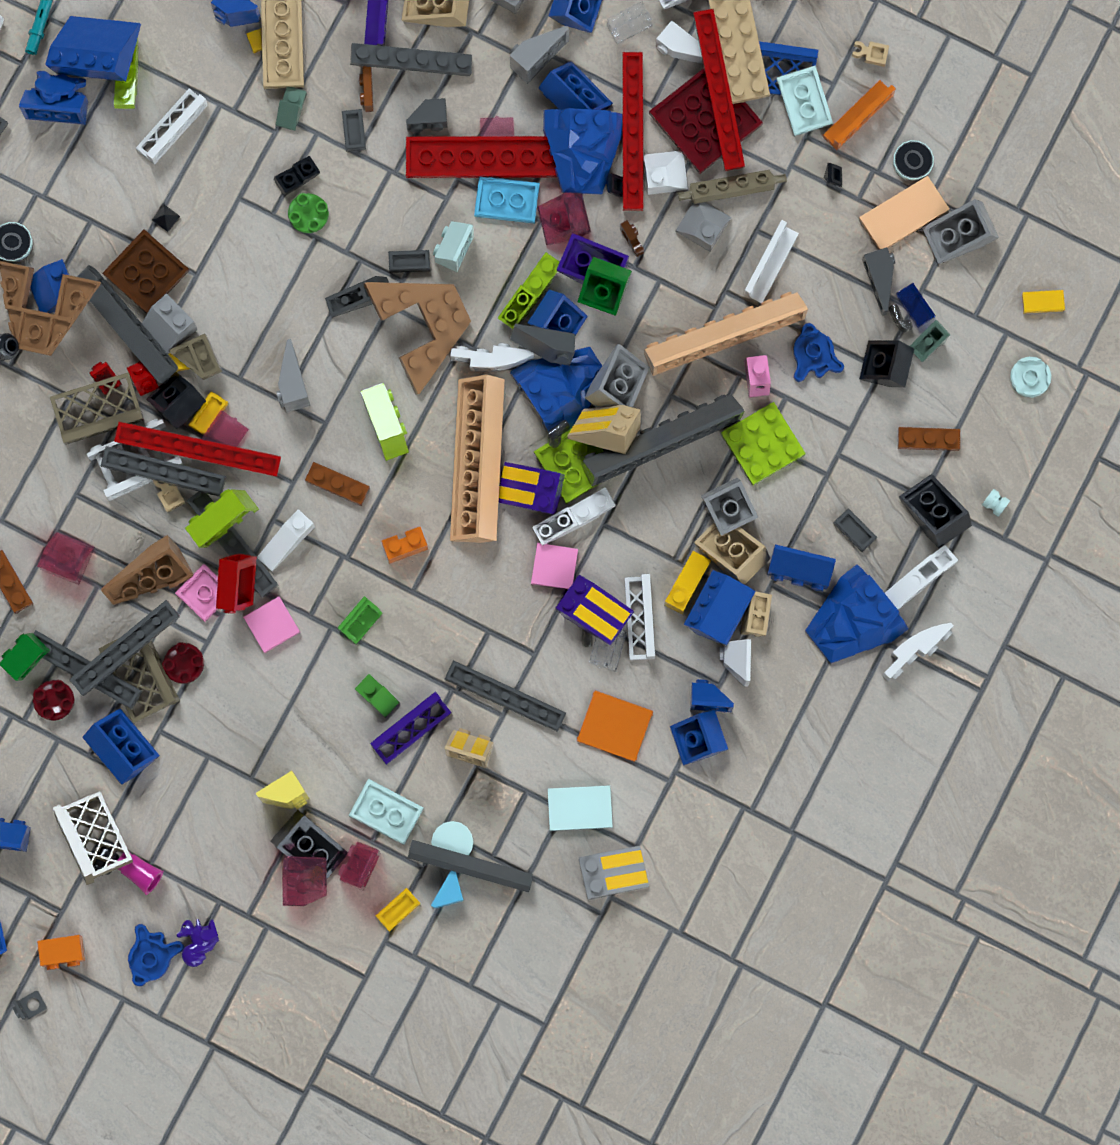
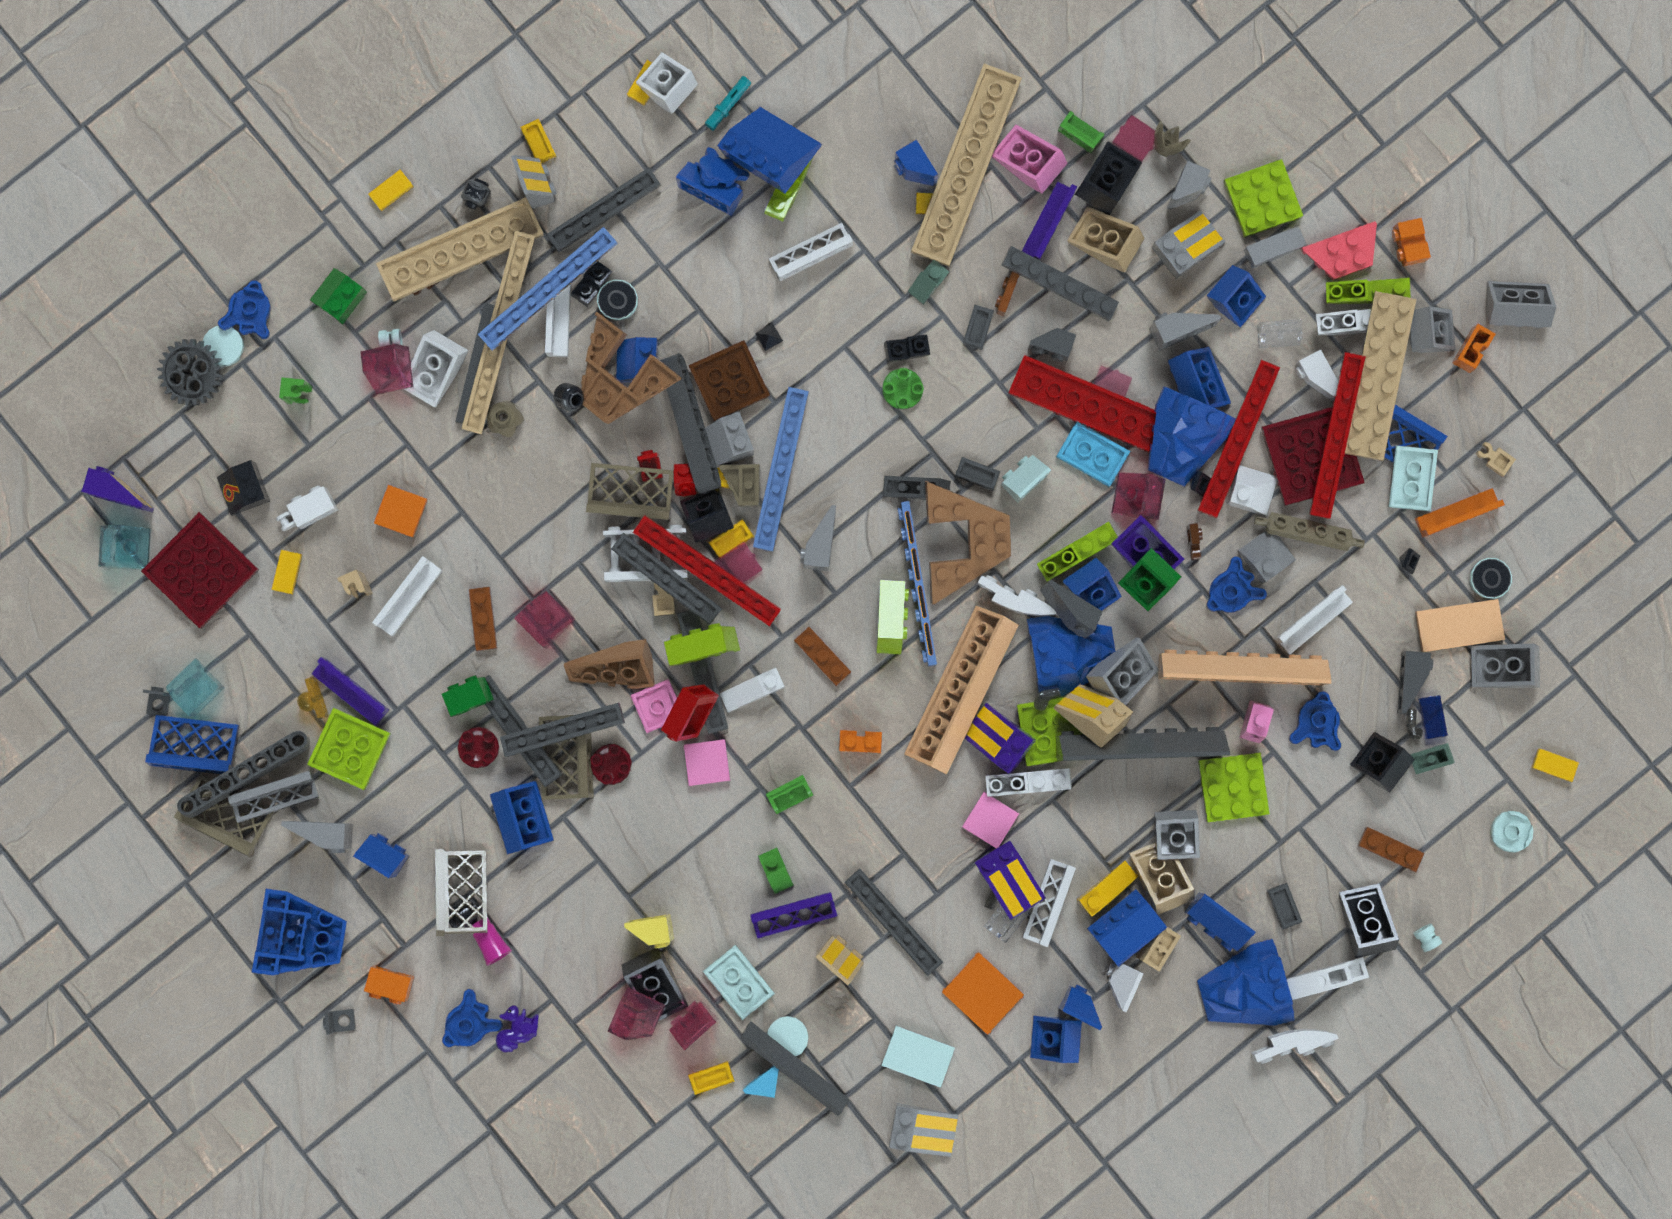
camera: 25 degrees right, 5 degrees up
(227, 331) = (780, 469): none -> medium blue plate
(400, 389) = (918, 593): none -> medium blue plate
(685, 267) = (1233, 589): none -> blue tile

